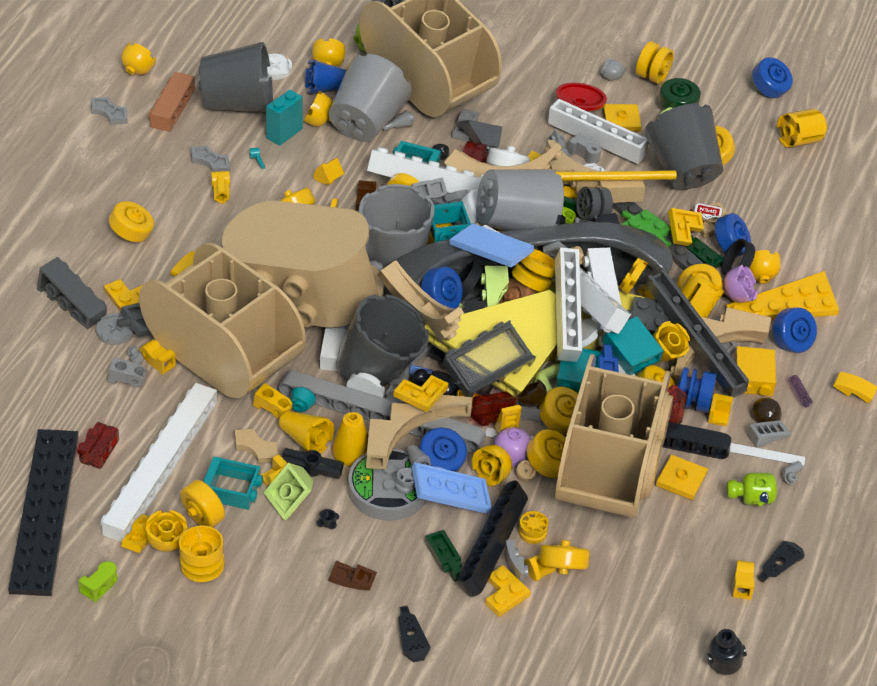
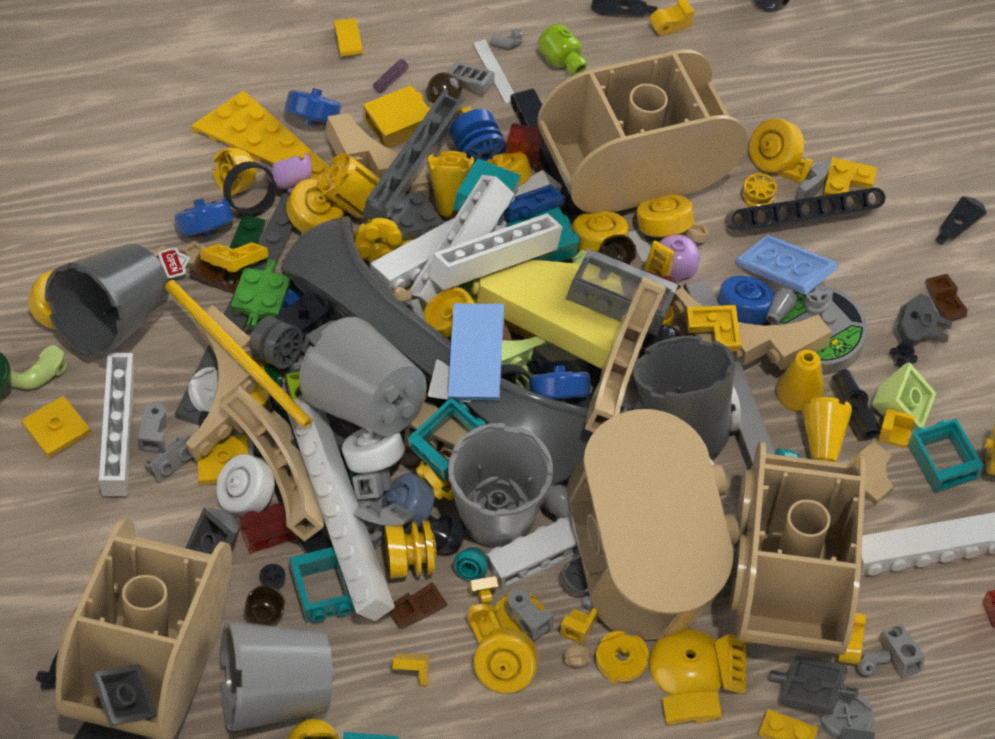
camera: 125 degrees left, 10 degrees up
(341, 537) = (918, 321): none -> dark grey hinge
(420, 133) = (264, 605): none -> dark brown hair
(444, 553) = (853, 241): dark green hinge -> none
(492, 464) = (719, 253): yellow cylinder -> none
(582, 96) = (57, 463): red dish -> none

